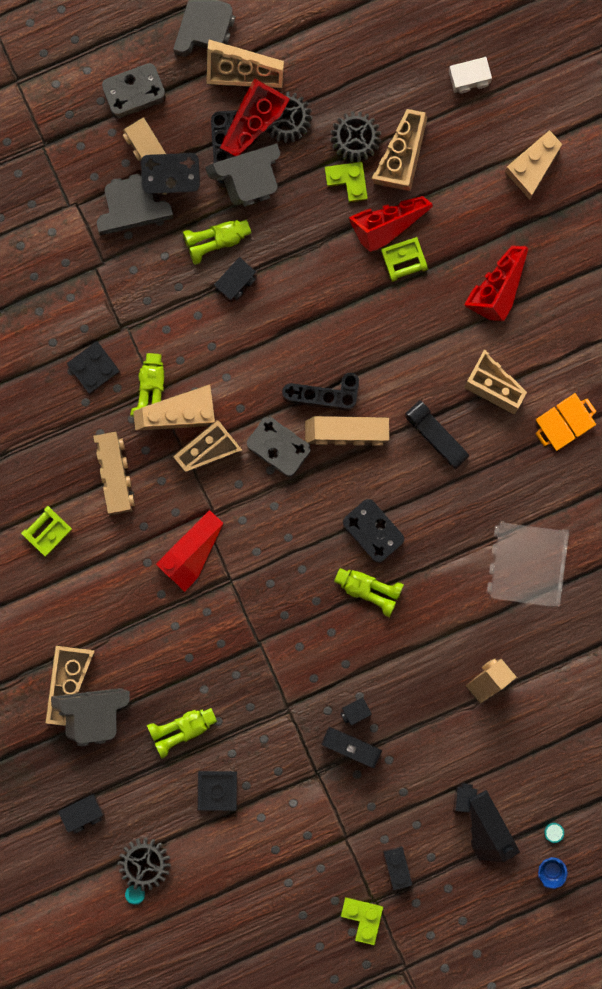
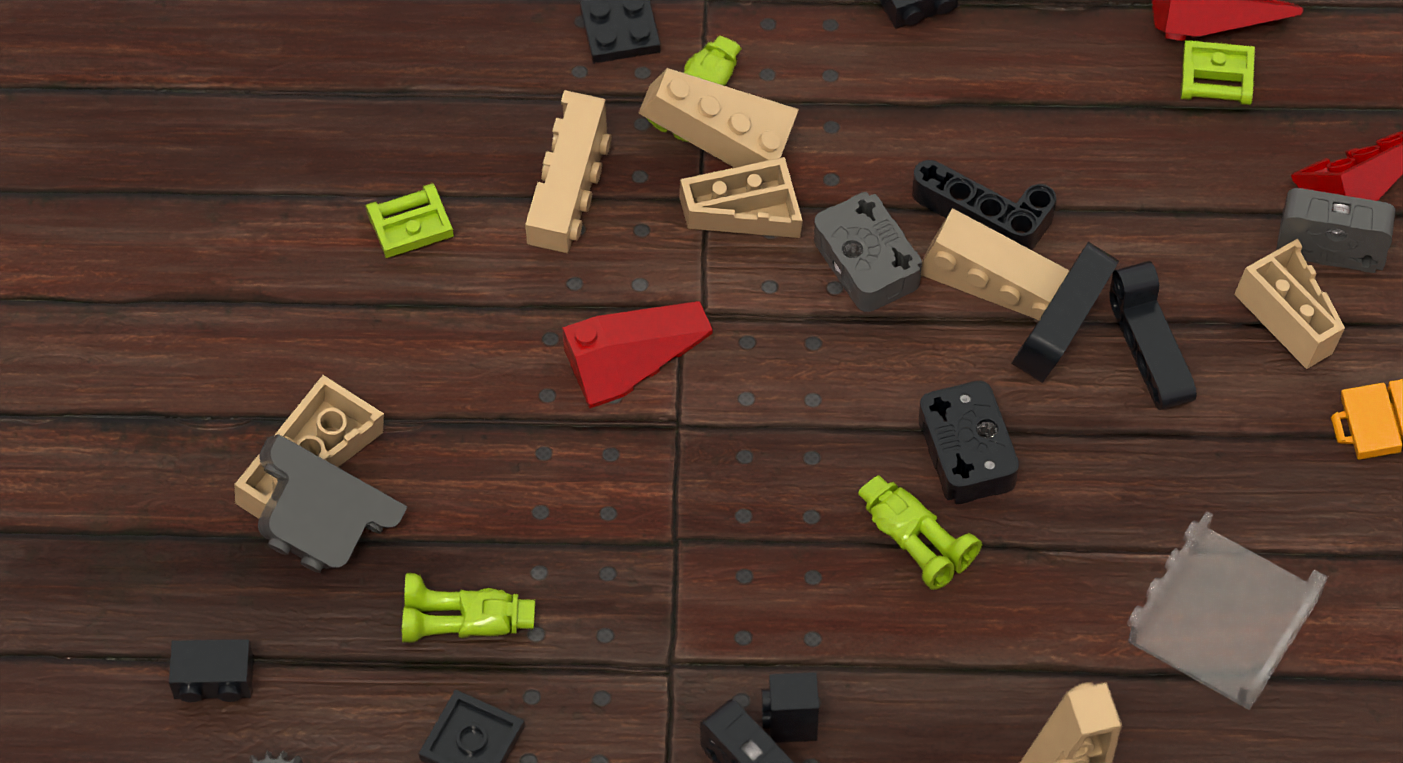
camera: 25 degrees right, 25 degrees down
(392, 442) = (1065, 312): none -> black beam
(500, 334) = (1338, 229): none -> dark grey axle

